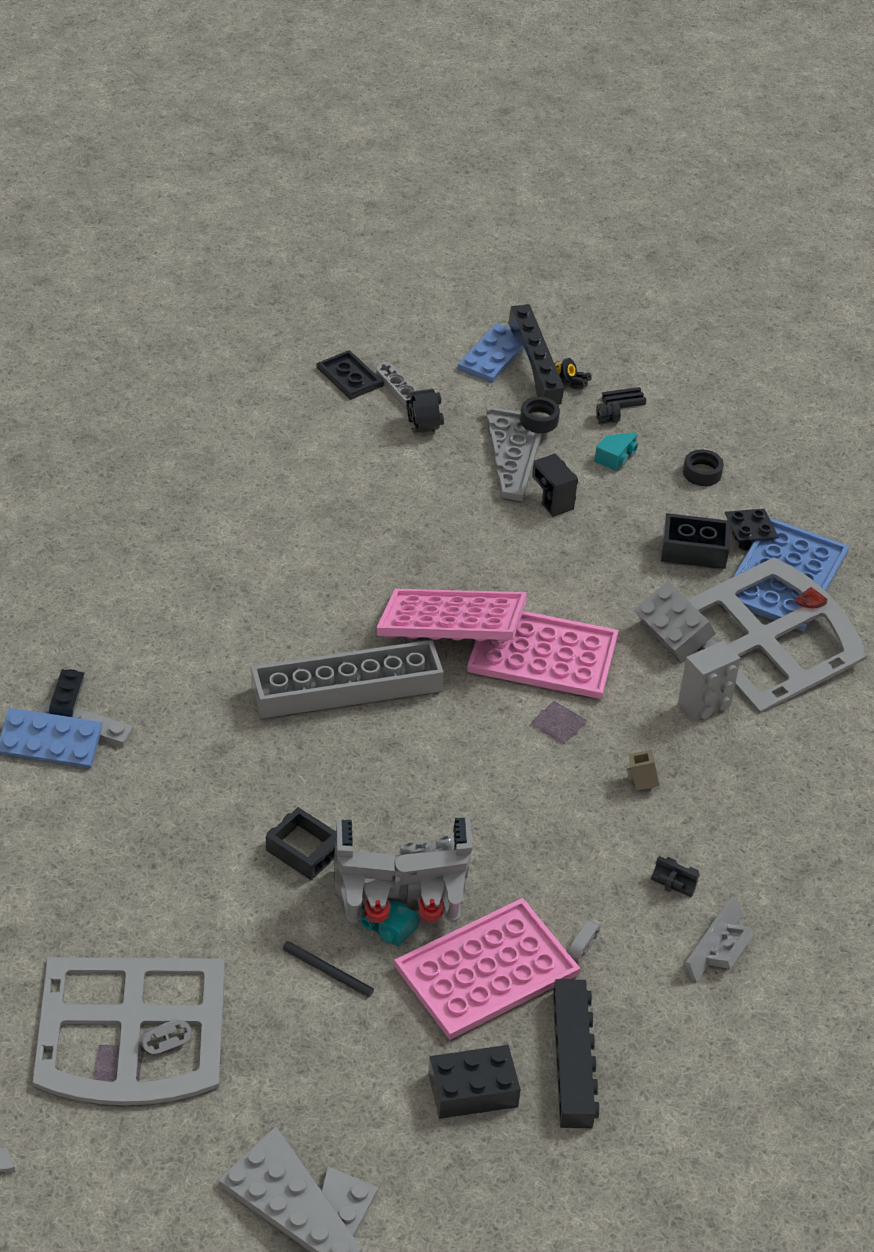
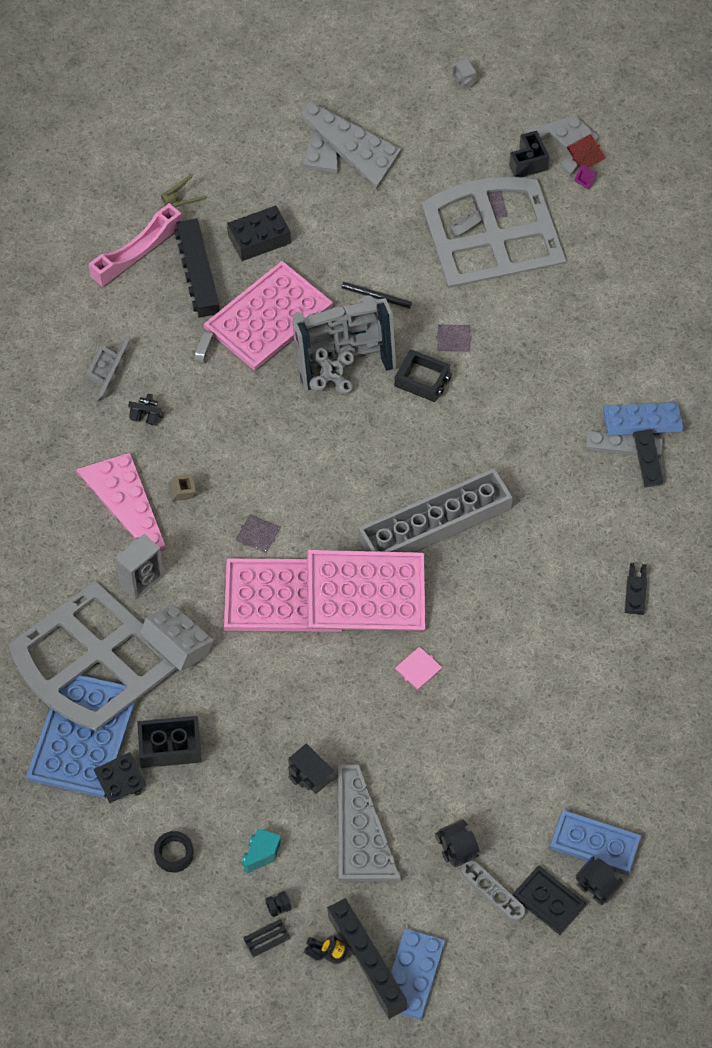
camera: 170 degrees right, 15 degrees up
(30, 1104) = (531, 157): none -> black brick
(146, 581) = (636, 591): none -> black hinge
(243, 892) = (454, 338): none -> clear purple piece
(289, 399) = (588, 838): none -> medium blue plate
(300, 364) = (599, 880): none -> black brick
(412, 565) = (418, 668): none -> bright pink piece
(537, 424) = (343, 849): black tyre -> none
(593, 1175) = (171, 195): none -> olive plant
(624, 1118) = (111, 264): none -> bright pink arch
(715, 793) = (122, 492): none -> bright pink wing
(811, 599) = (59, 687): clear red tile -> none

